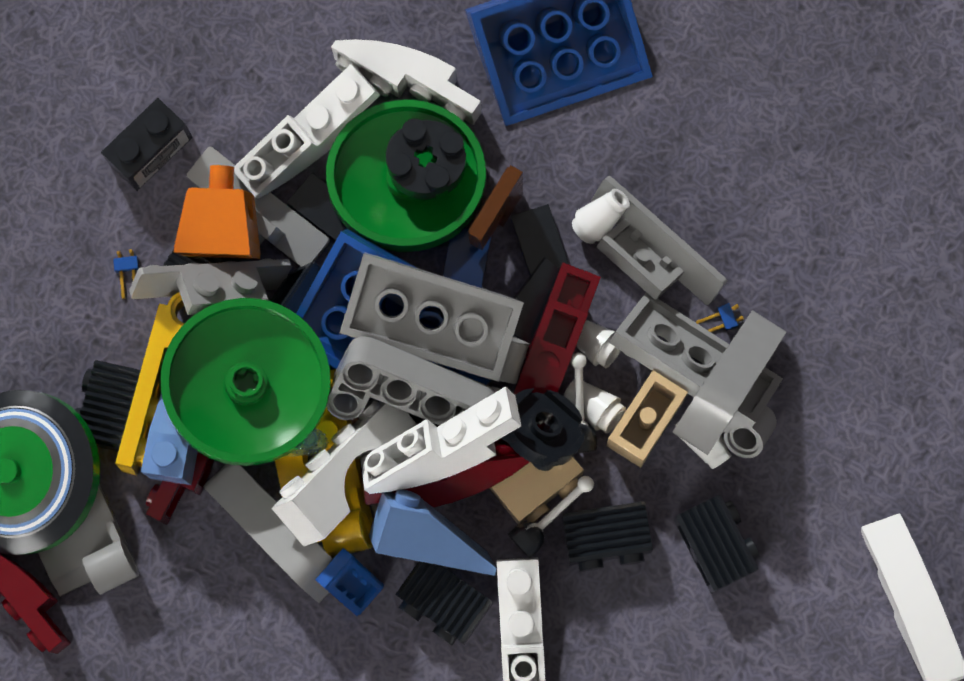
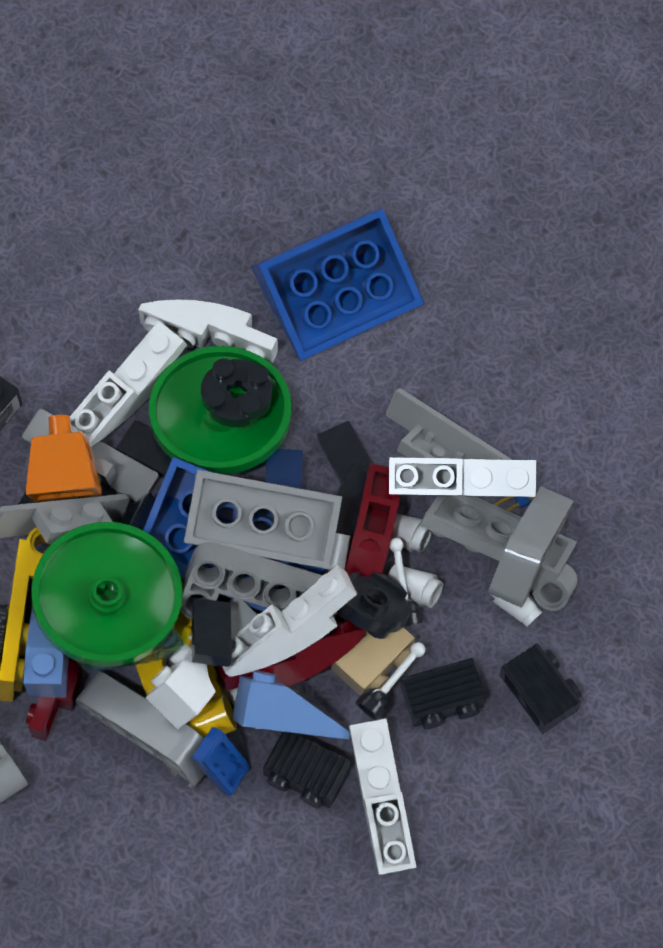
camera: 15 degrees left, 10 degrees down
(354, 443) = (211, 632): none -> black tile
(497, 207) = (306, 424): reddish brown tile -> none
(600, 216) = (396, 423): white cone -> none
(646, 419) = (463, 588): tan brick -> none
(664, 293) = (462, 477): none -> white slope

